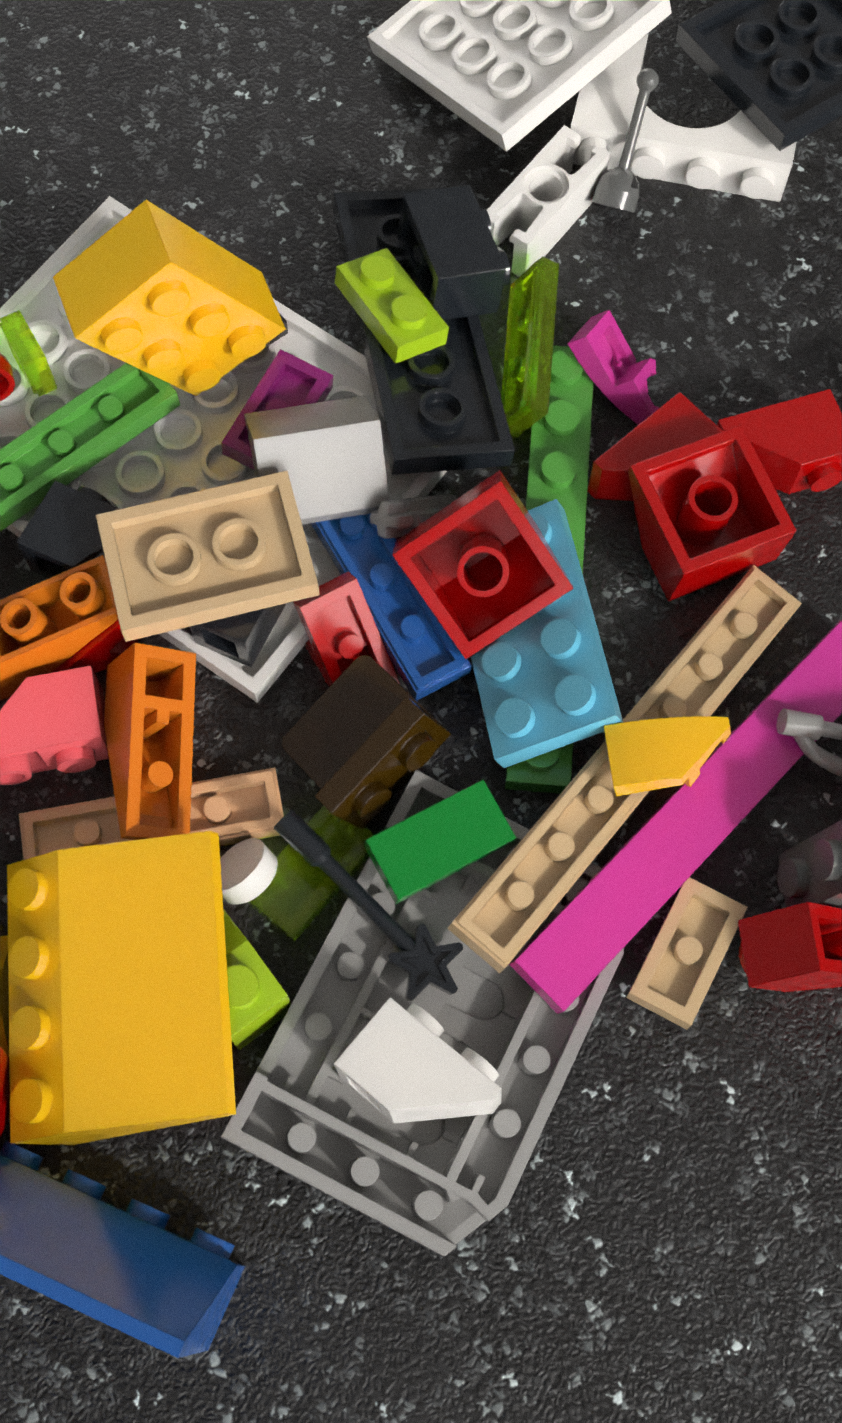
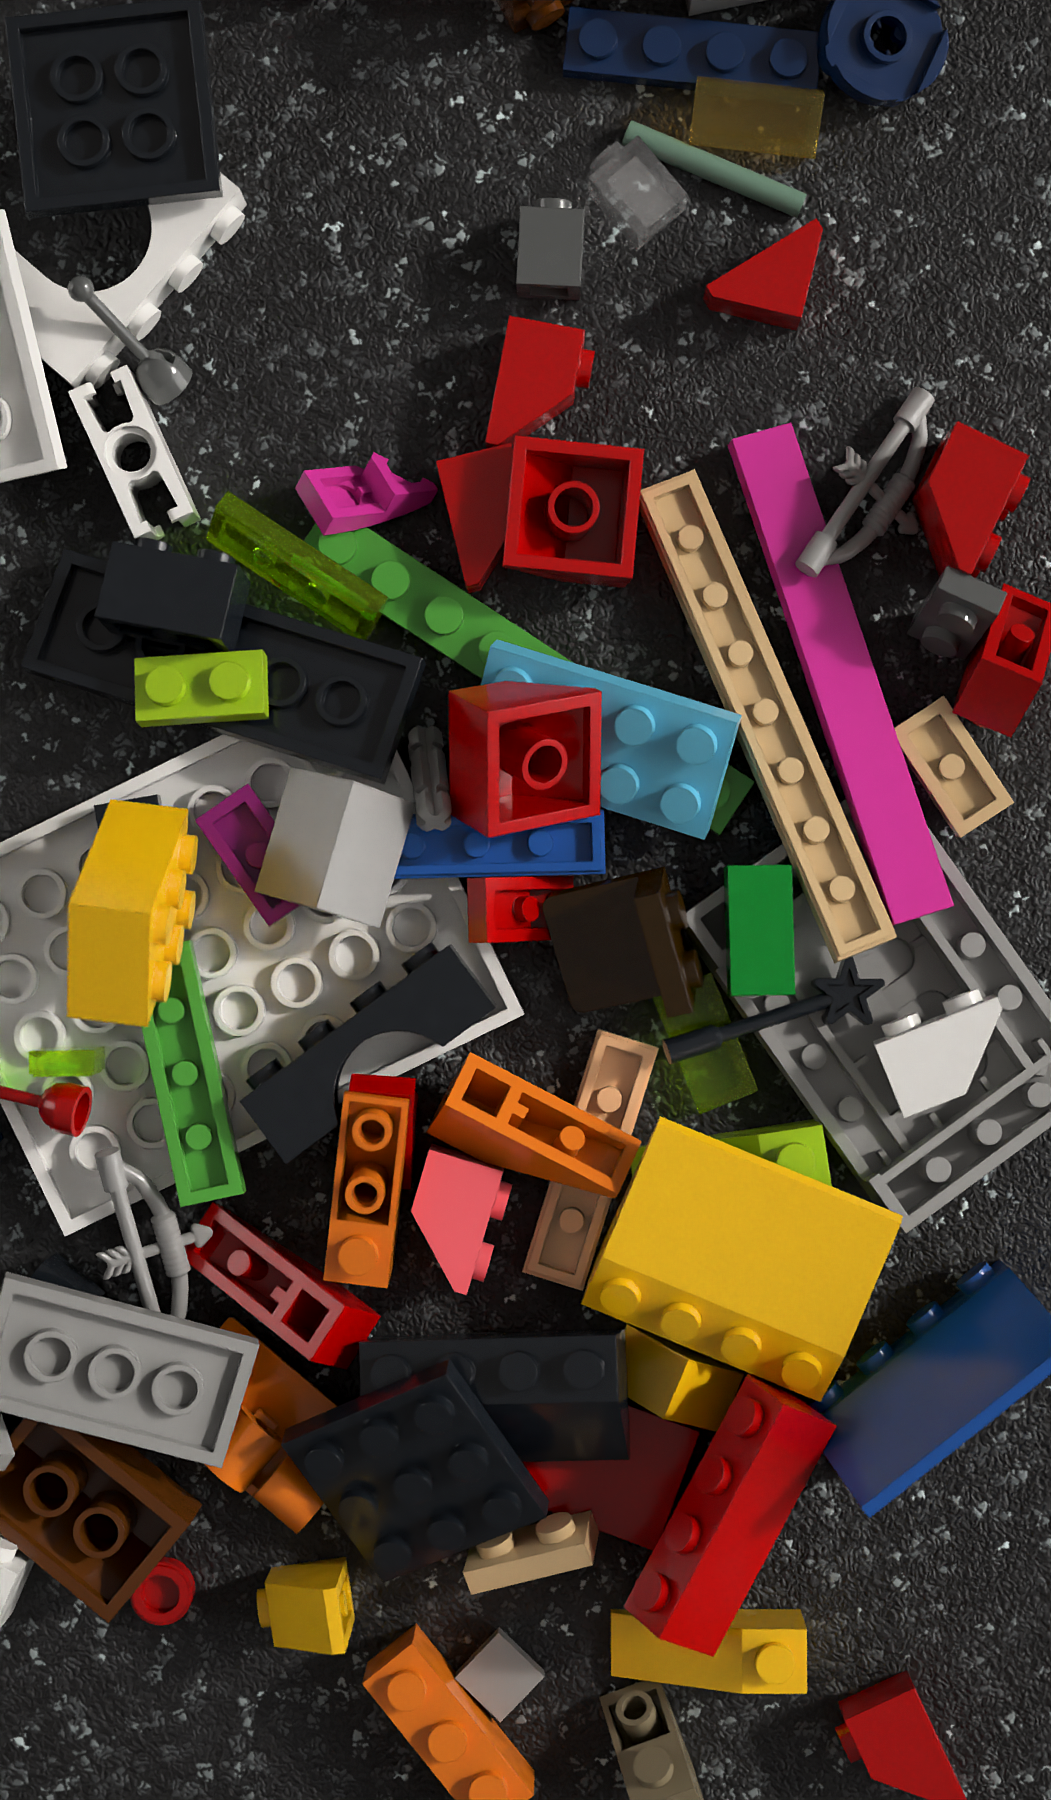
camera: 60 degrees left, 20 degrees up
(206, 555) = (402, 1003): tan plate -> none
(247, 870) = (682, 1099): white tile -> none
(661, 751) = (783, 697): yellow slope -> none

